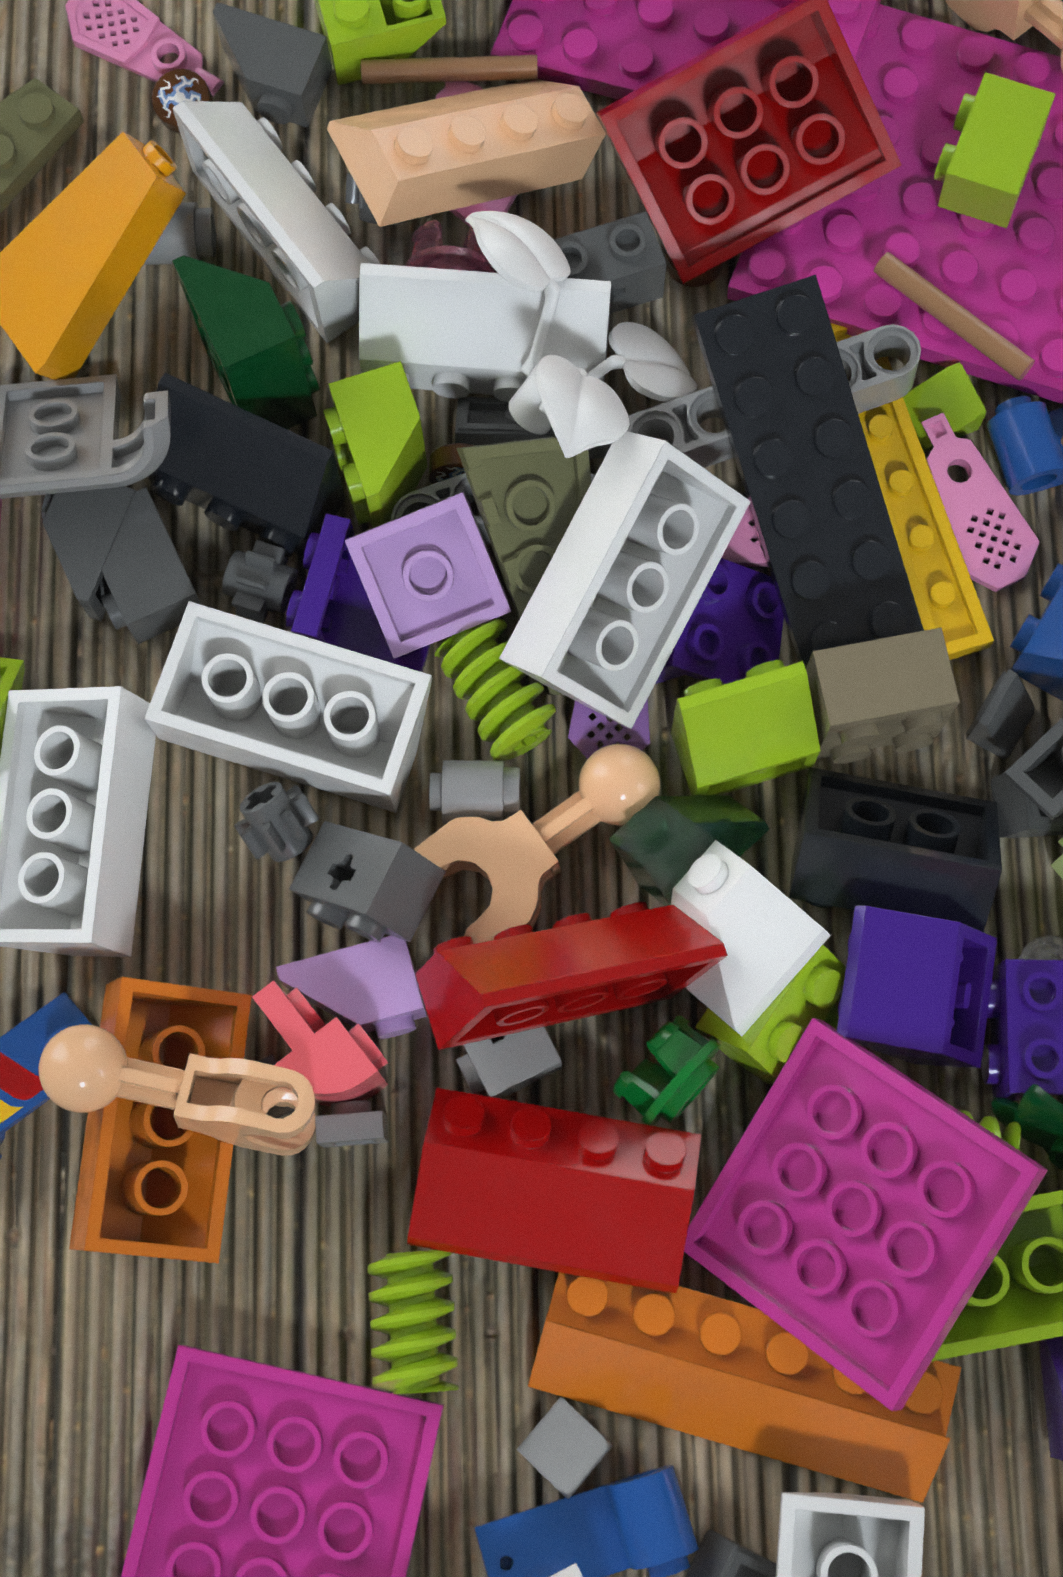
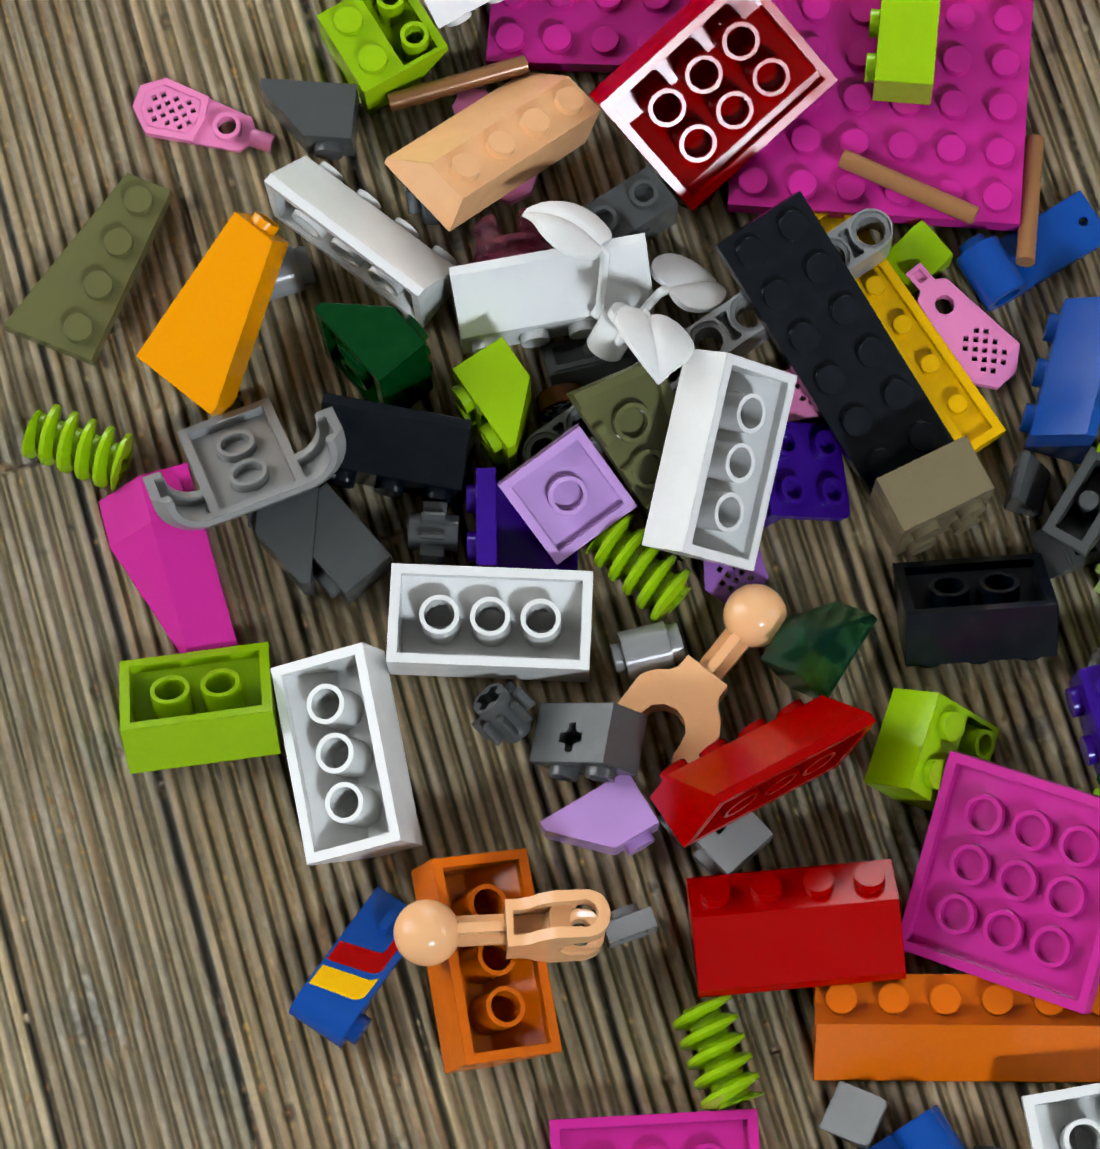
camera: 15 degrees left, 0 degrees up
(174, 88) = (250, 161): reddish brown tile -> none
(334, 1060) = (609, 872): coral brick -> none
(685, 1074) = (864, 806): green piece -> none
(745, 729) = (839, 550): lime slope -> none
(761, 930) = (893, 694): white slope -> none
(917, 987) = (1019, 708): dark purple slope -> none

